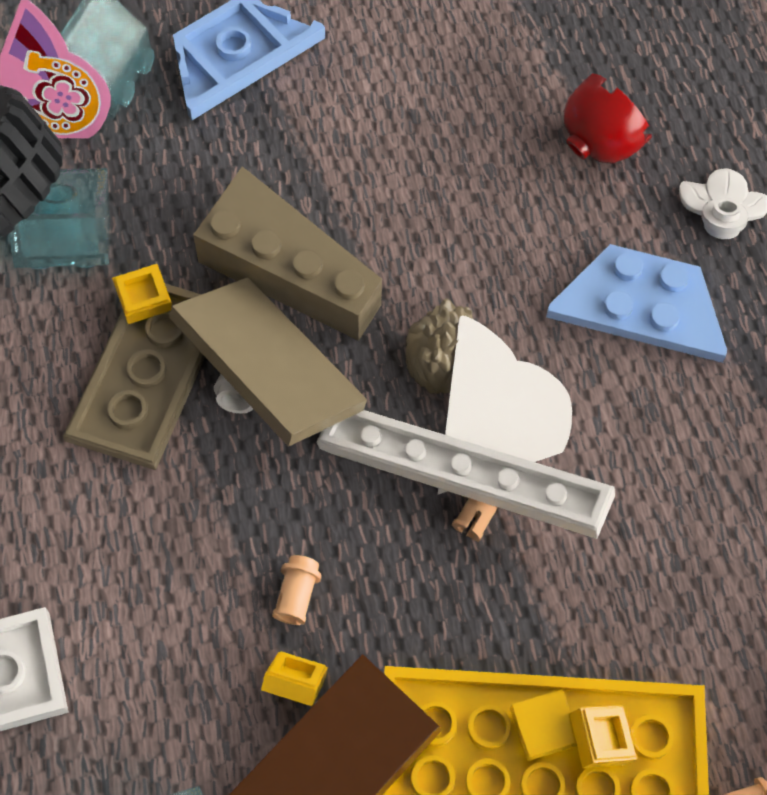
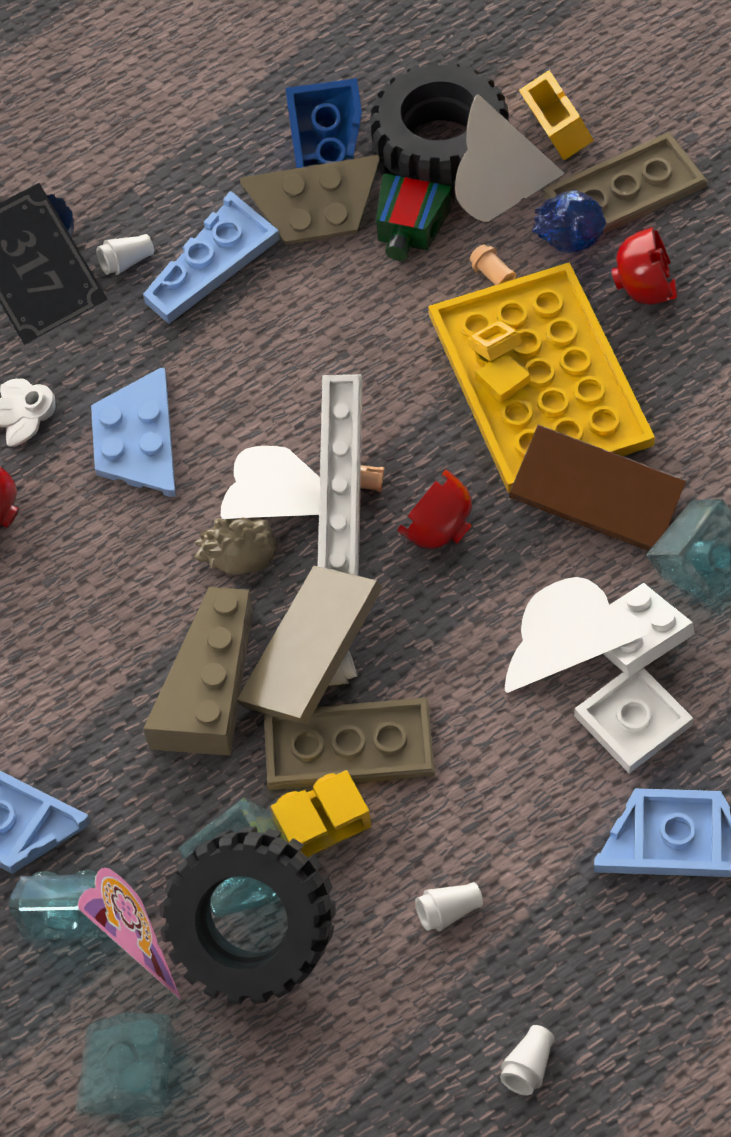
camera: 105 degrees left, 5 degrees down
(72, 315) = (322, 815): none -> yellow piece
(108, 729) = (665, 626): none -> white plate
(142, 293) = (287, 766): yellow tile -> none
(147, 649) = (566, 627): none -> white sticker
(294, 678) = (543, 535): yellow tile -> none
(296, 590) = (478, 563): light nougat pin -> none
(375, 564) = (440, 514): none -> red cylinder

